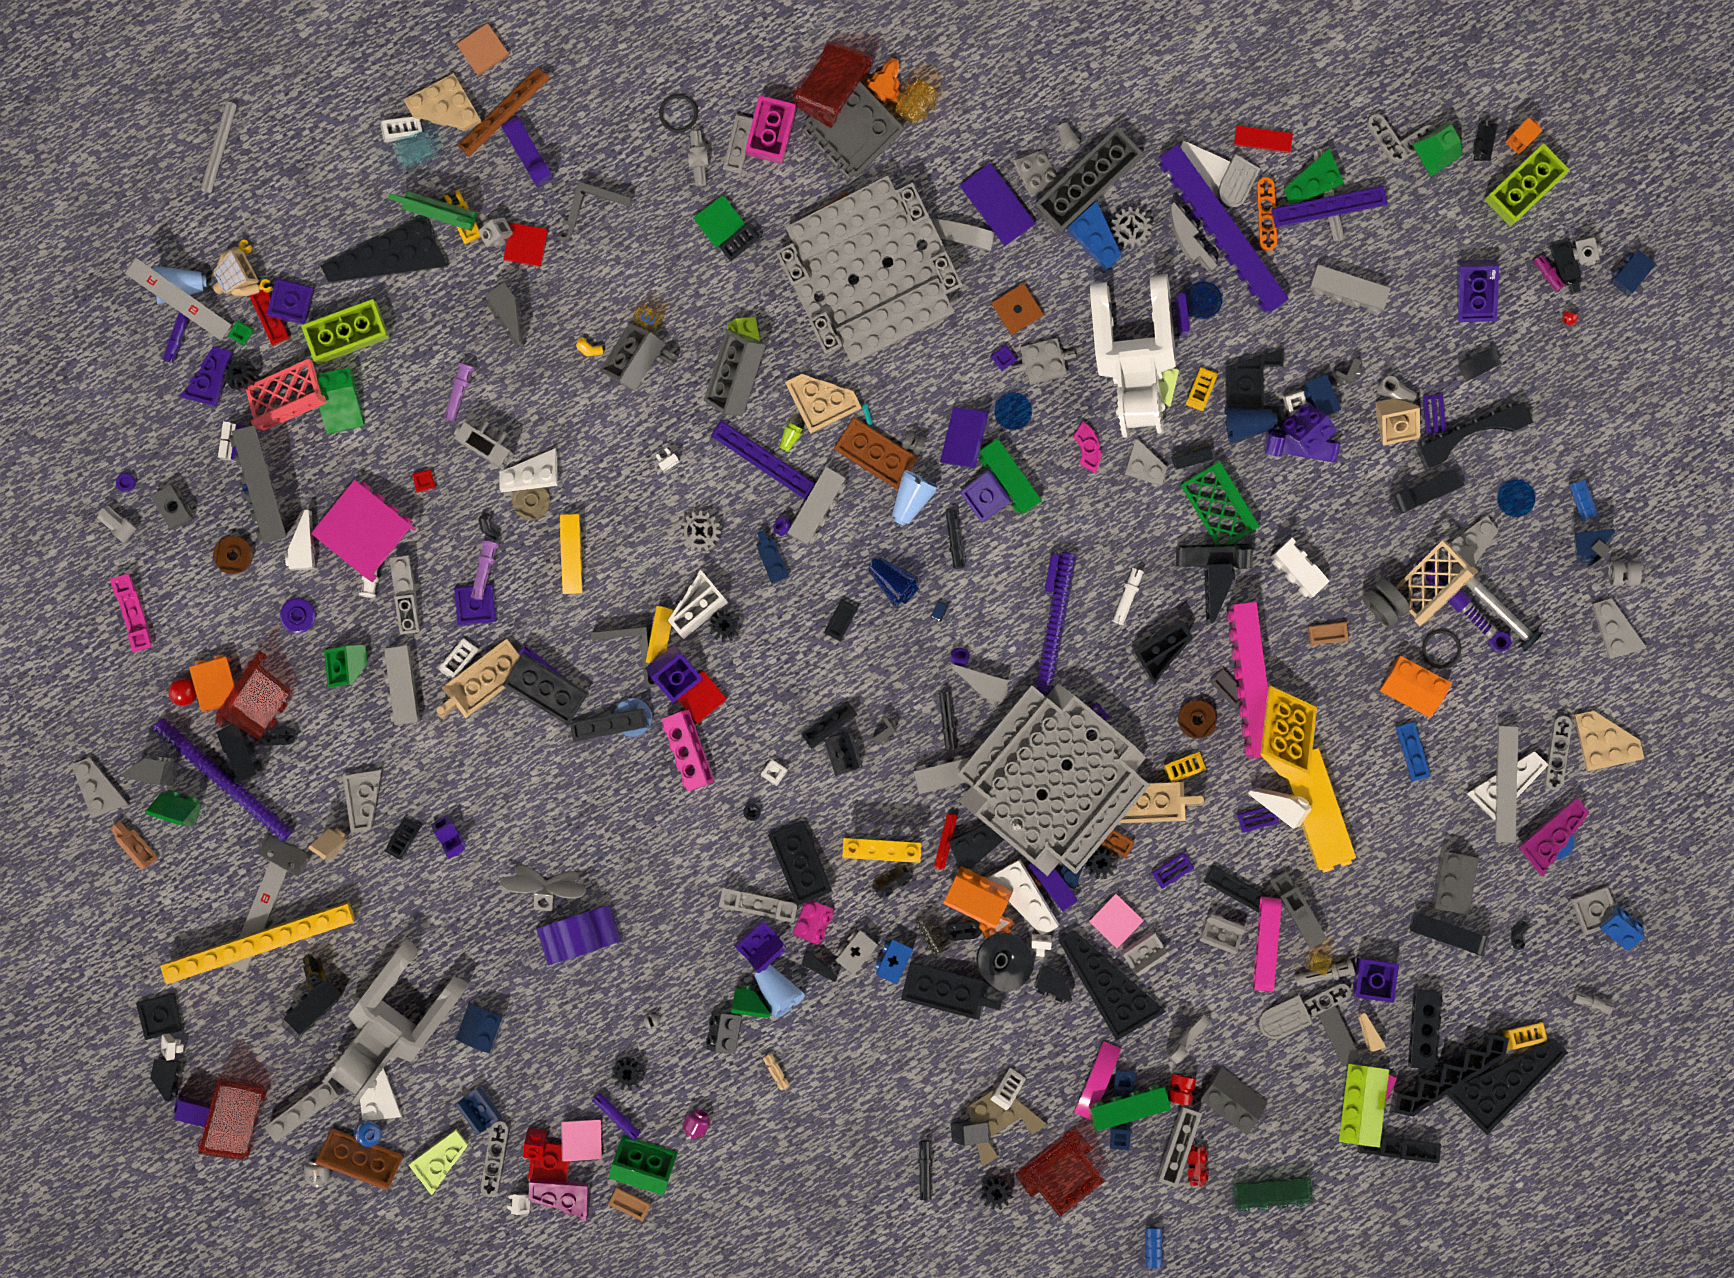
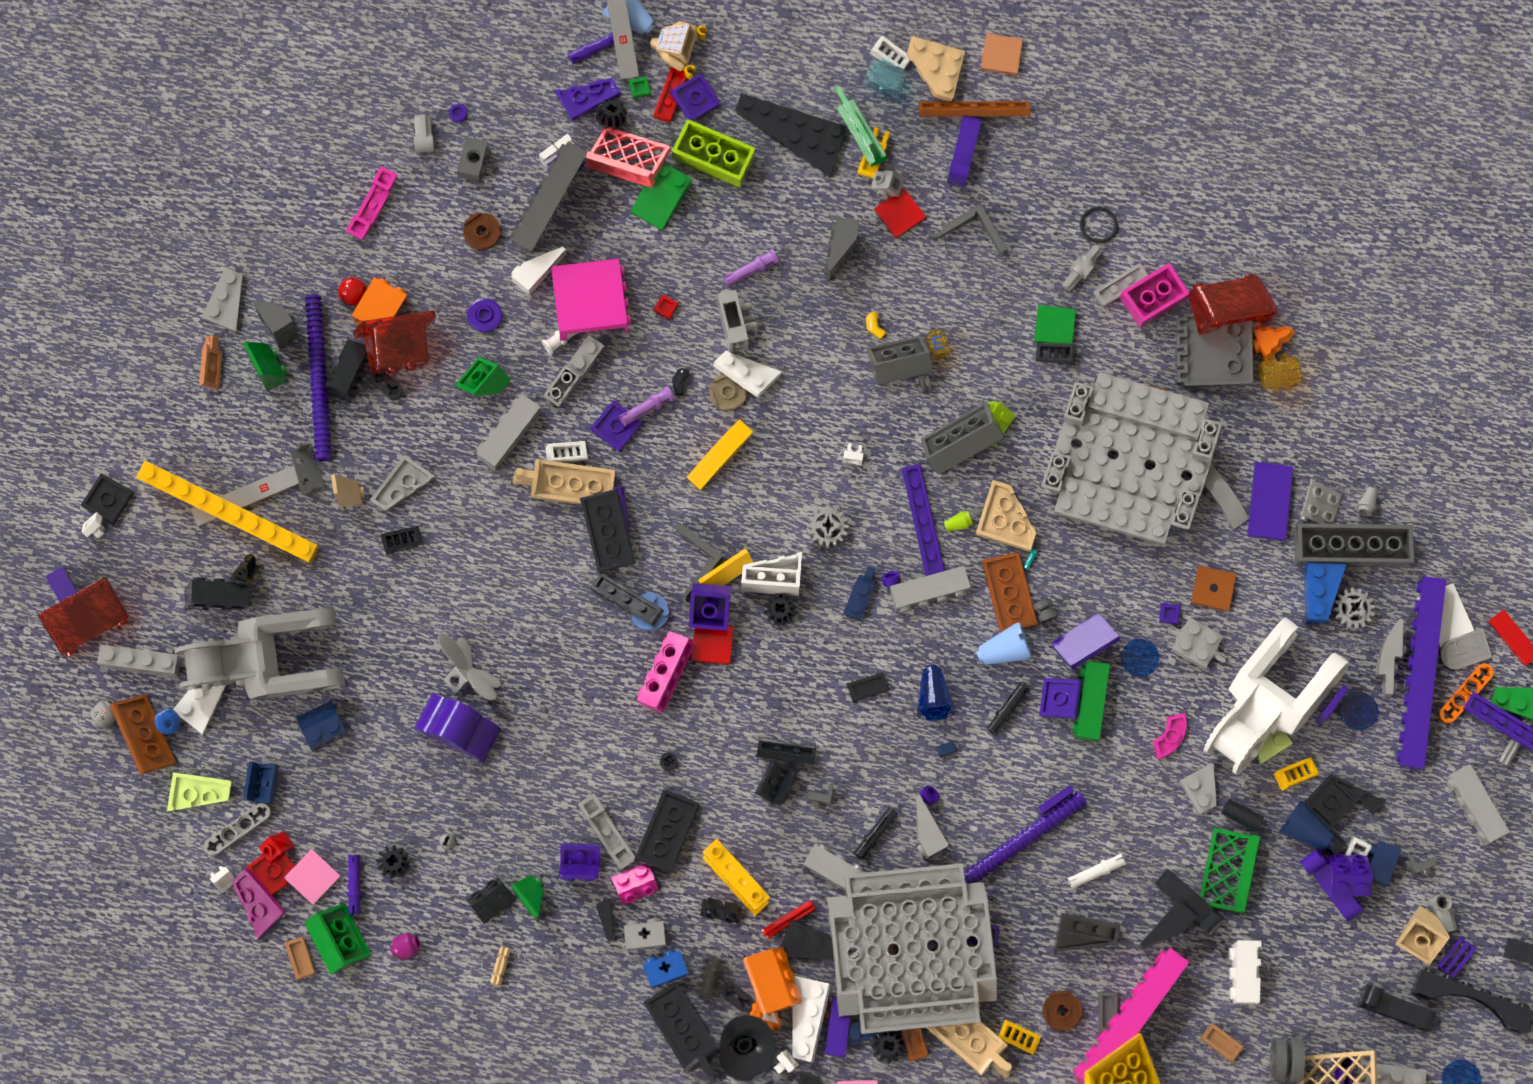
camera: 40 degrees right, 10 degrees down
(165, 1077) = (69, 543): black slope -> none
(448, 836) = (435, 568): dark purple brick -> none
(774, 772) = (712, 748): white tile -> none
(778, 991) = (559, 908): light blue cone -> none

